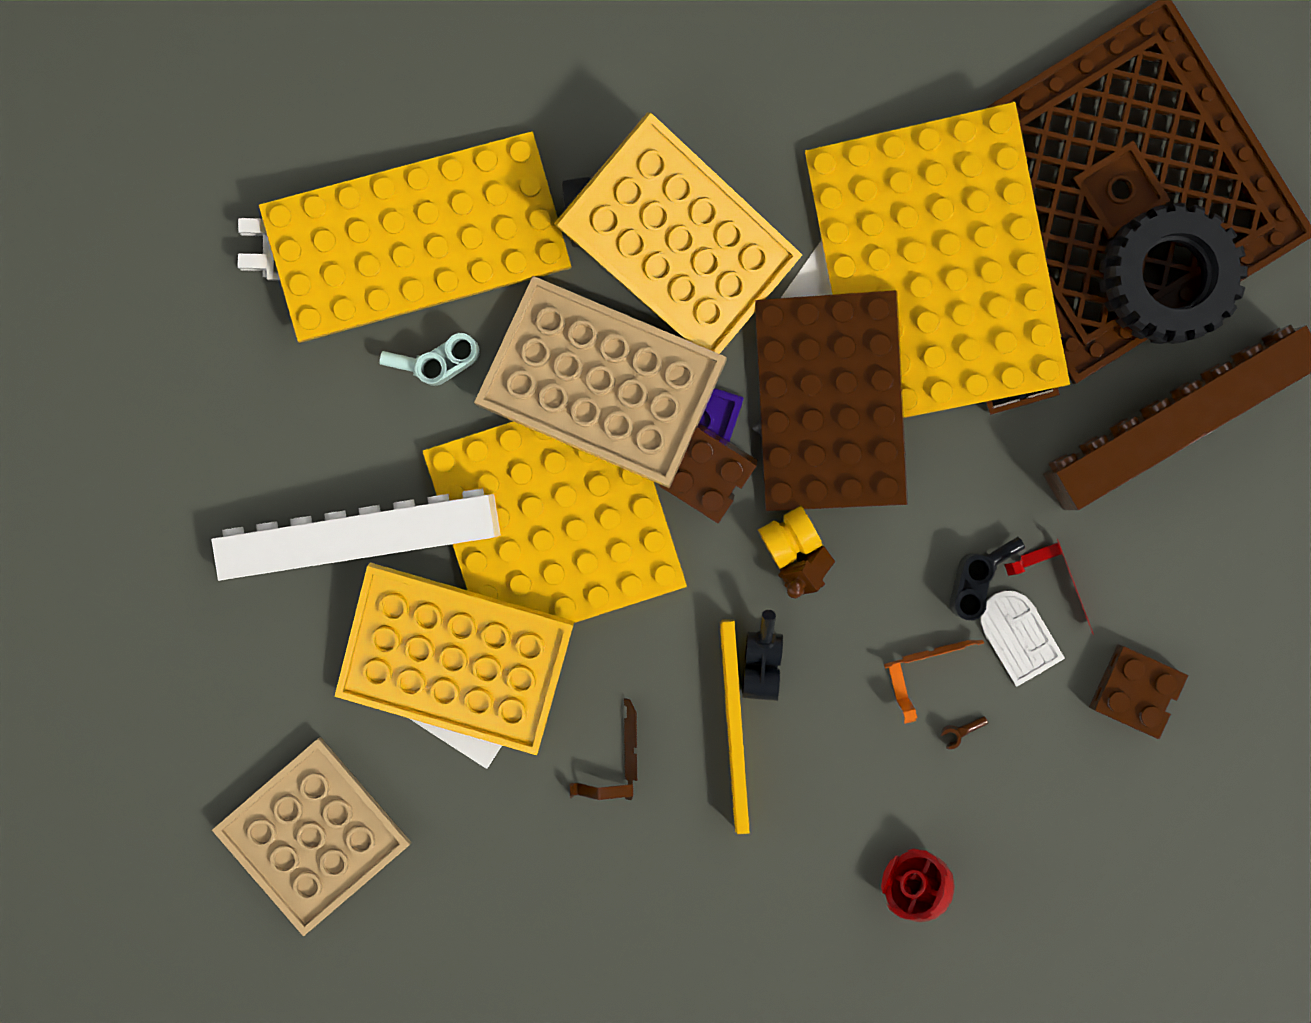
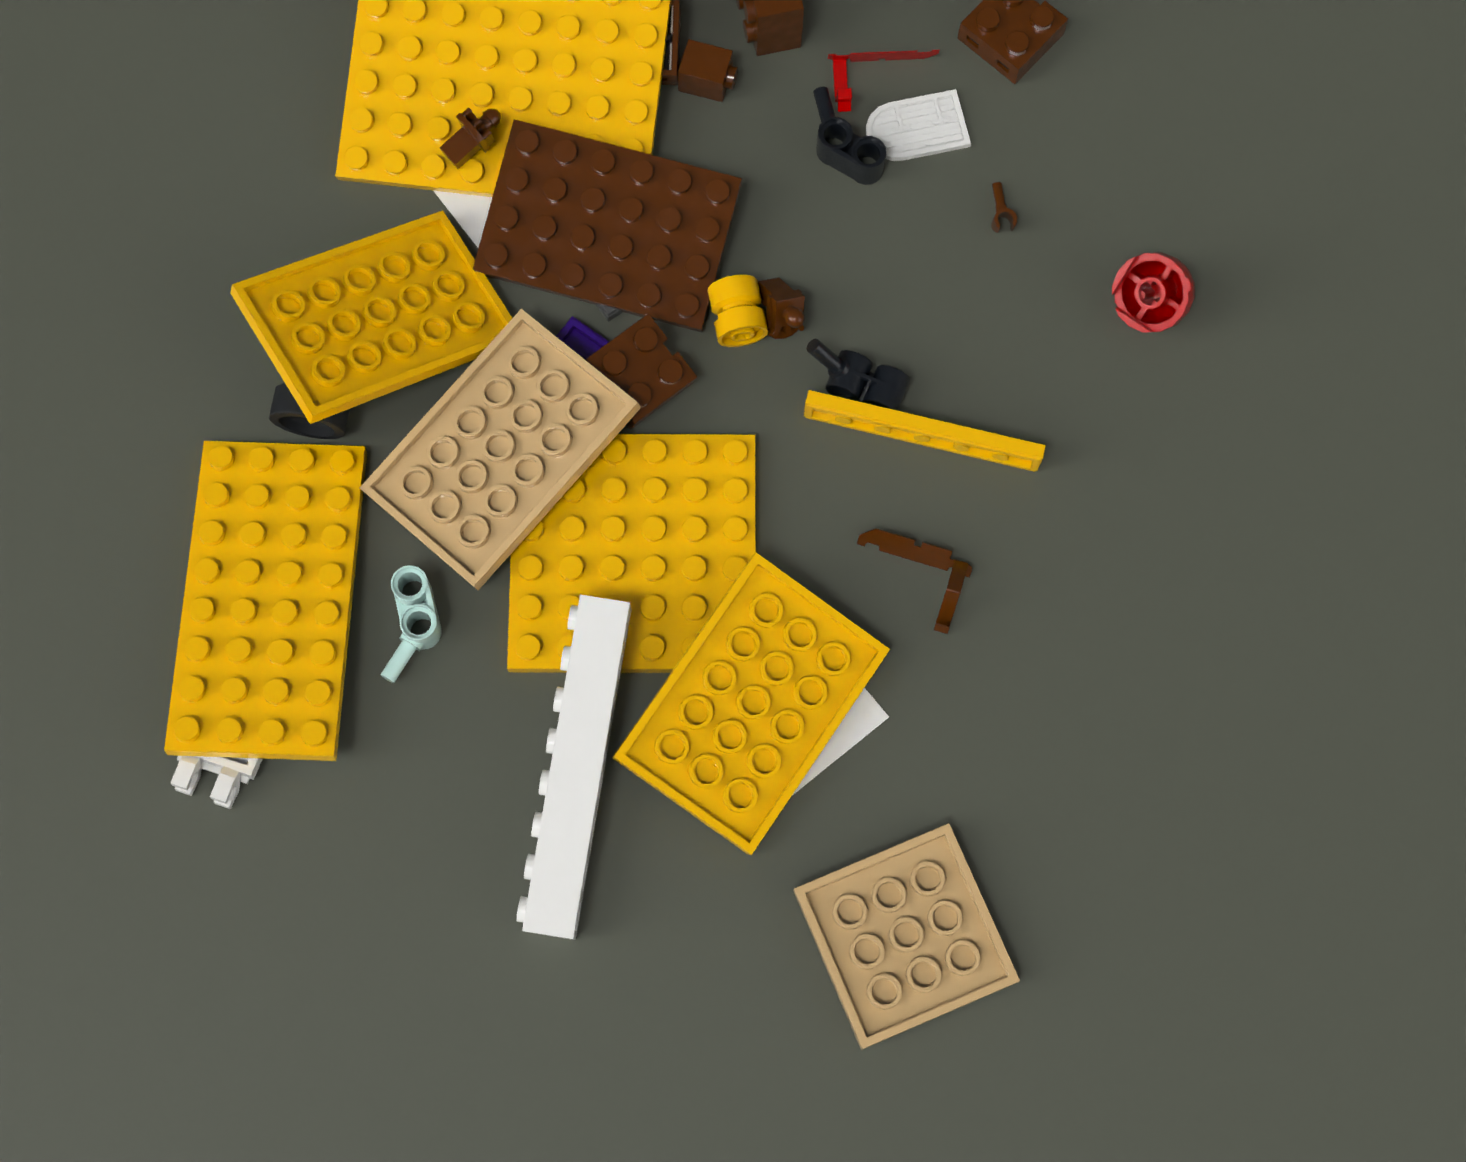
camera: 70 degrees left, 15 degrees down
(871, 259) = (472, 136): none -> reddish brown piece
(898, 679) = (922, 256): orange piece -> none
(1007, 437) = (706, 71): none -> reddish brown brick

